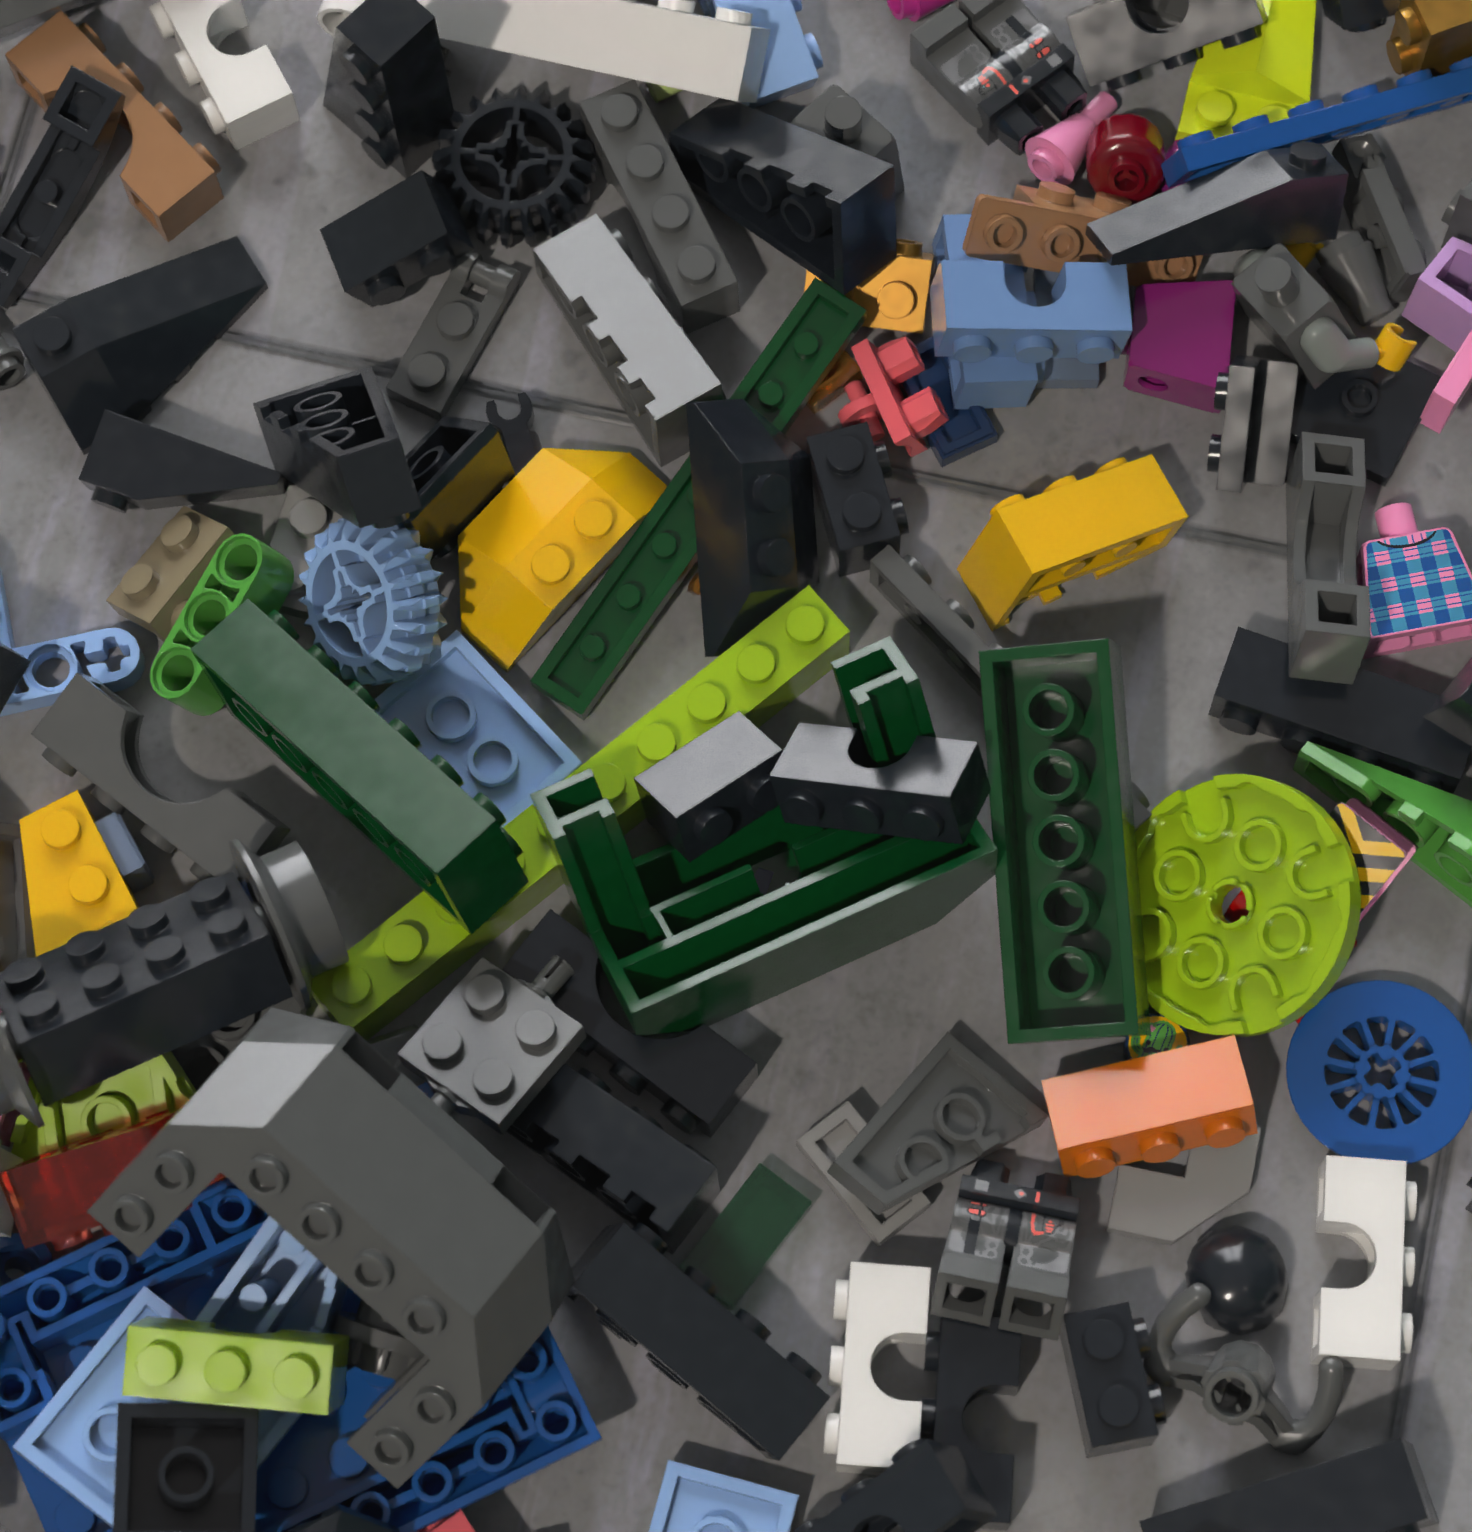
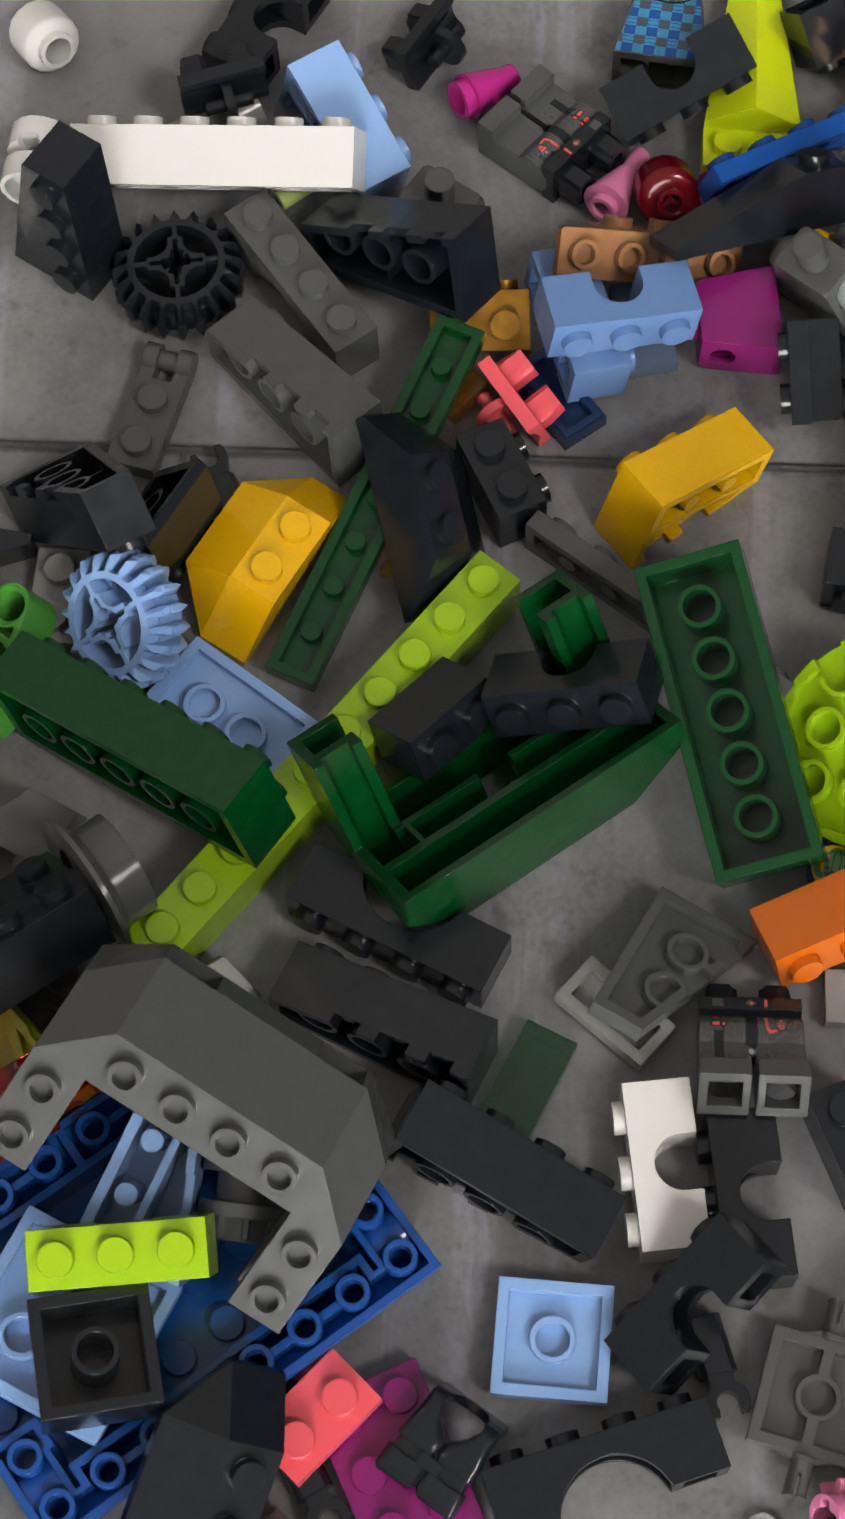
camera: 10 degrees left, 5 degrees down
(397, 240) = (94, 341): black brick -> none
(494, 1043) = (294, 951): plate -> none

